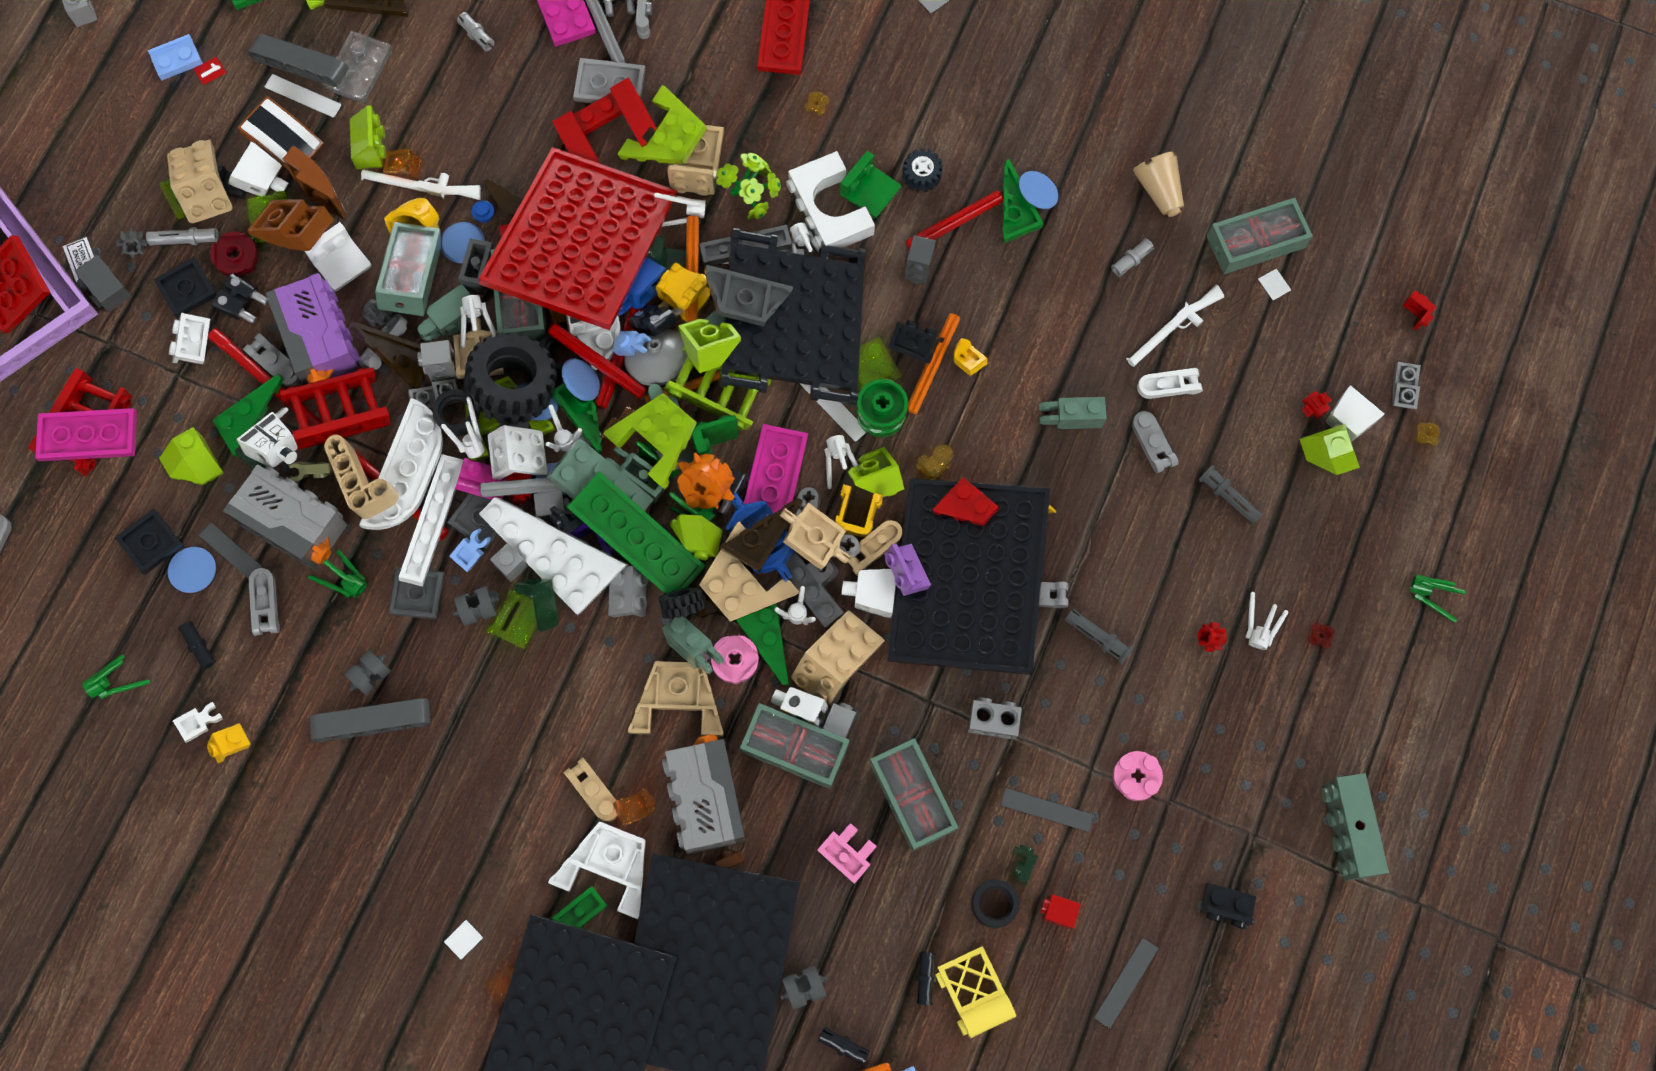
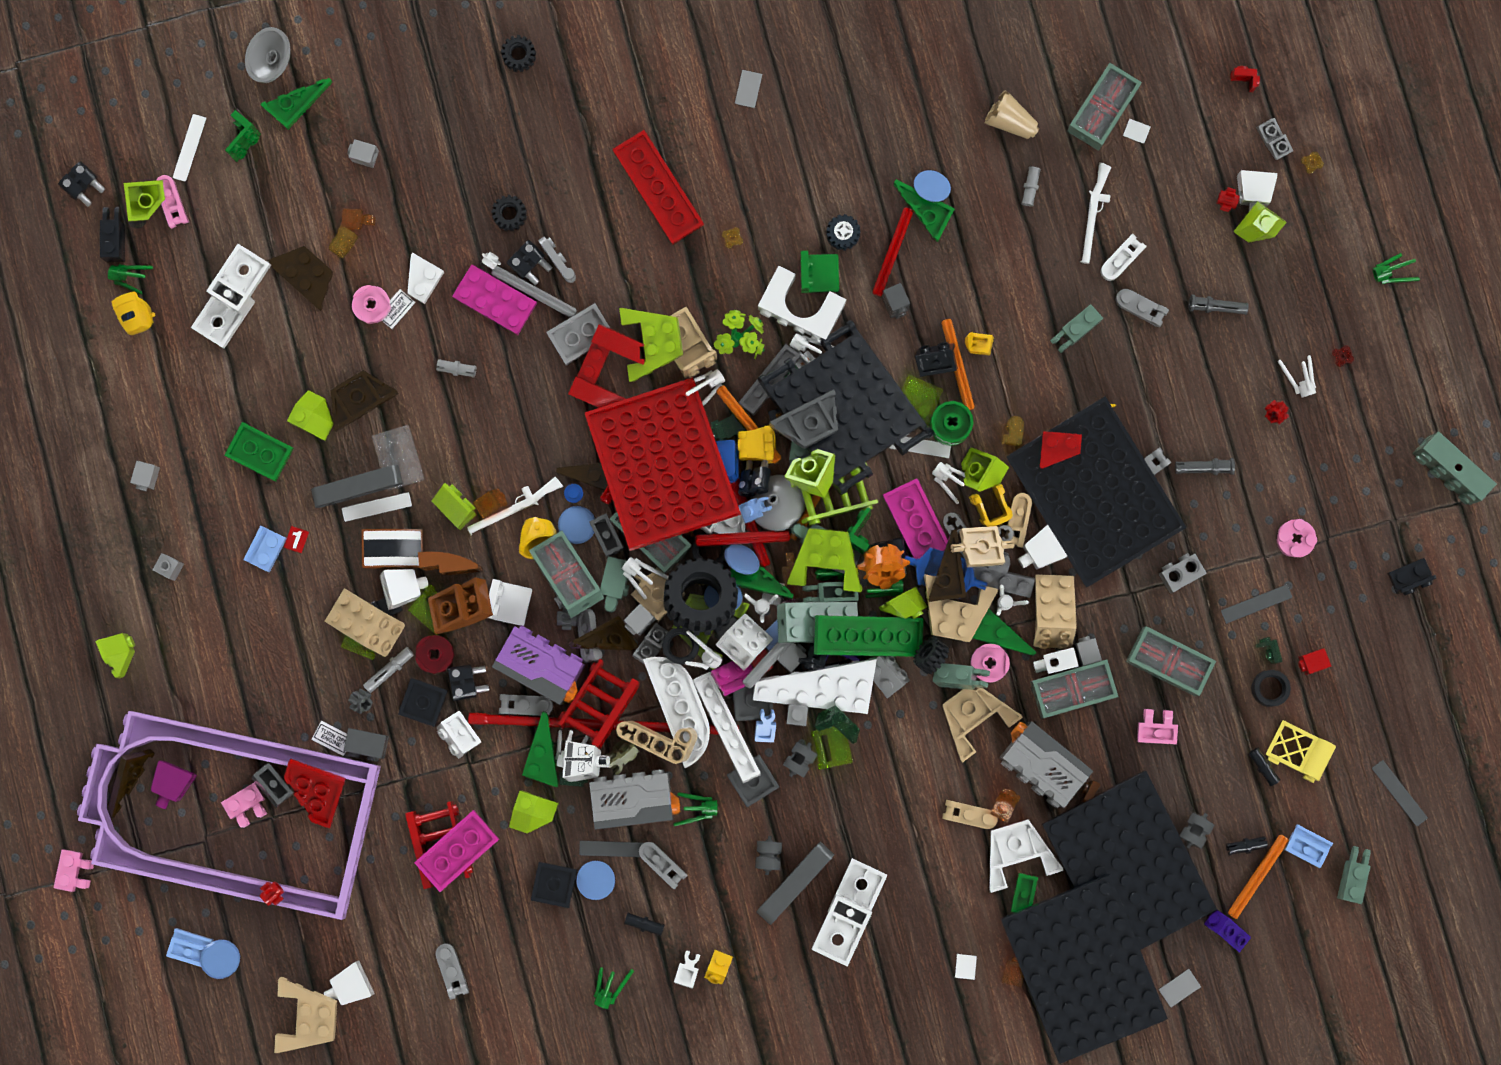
camera: 30 degrees left, 10 degrees up
(392, 788) = (849, 912): none -> white bracket
(906, 569) = (1054, 520): medium lavender bracket -> none
(1126, 983) = (1384, 672): dark grey sticker -> none

